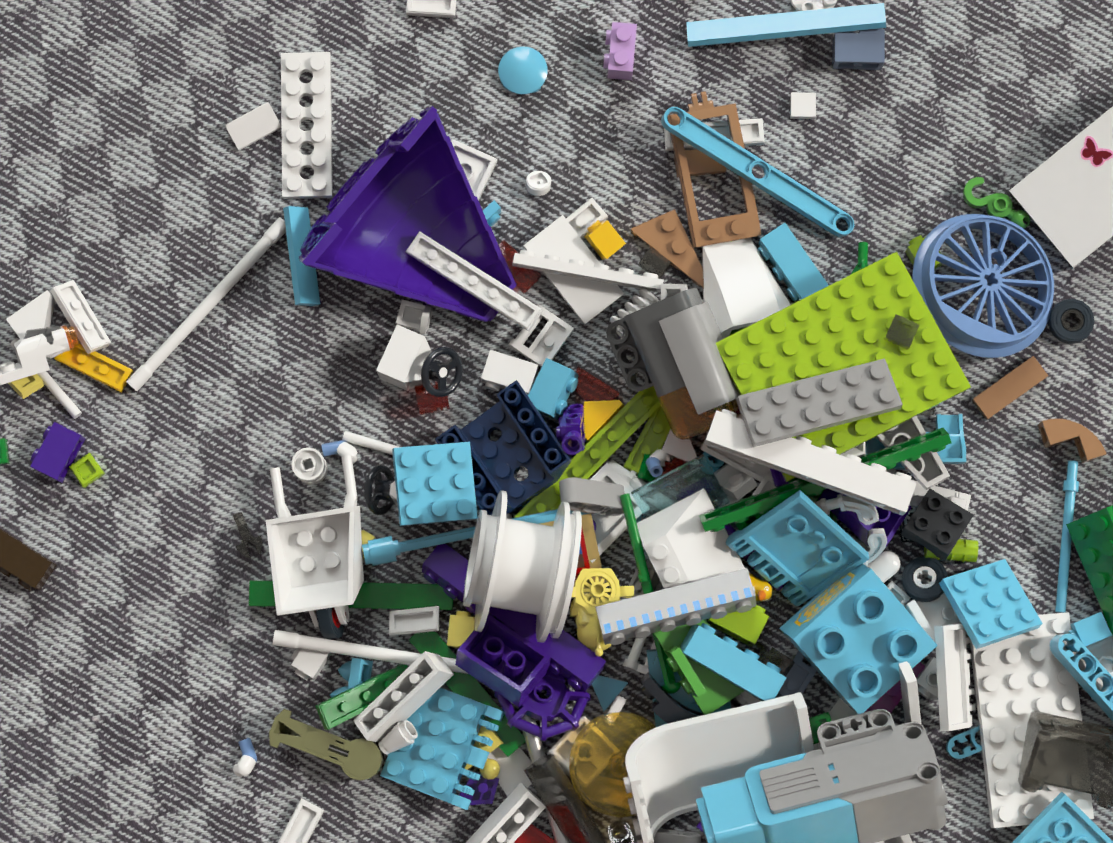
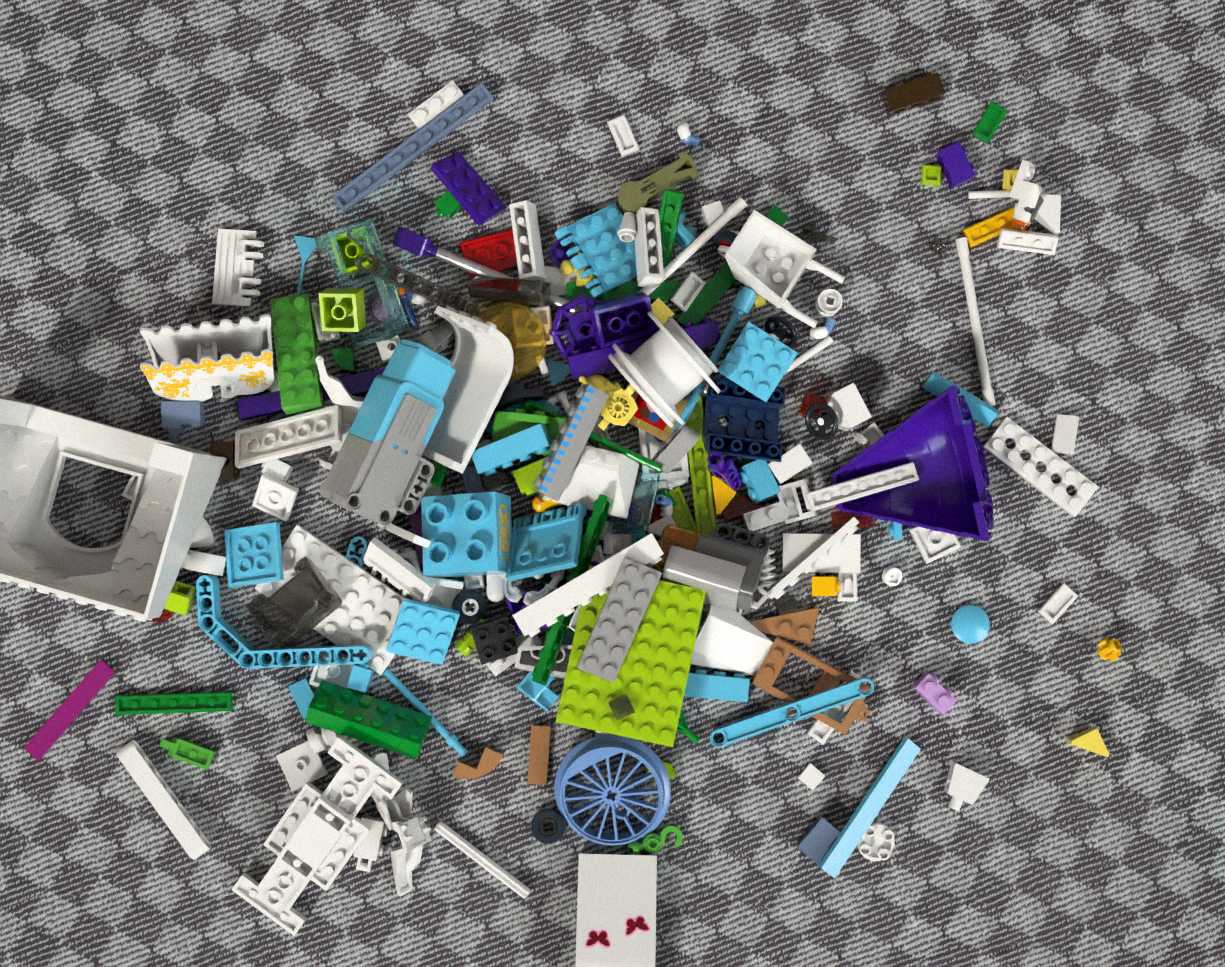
camera: 125 degrees right, 5 degrees up
(158, 403) = (937, 246): none -> clear smoke bush
(585, 355) = (764, 517): none -> white brick

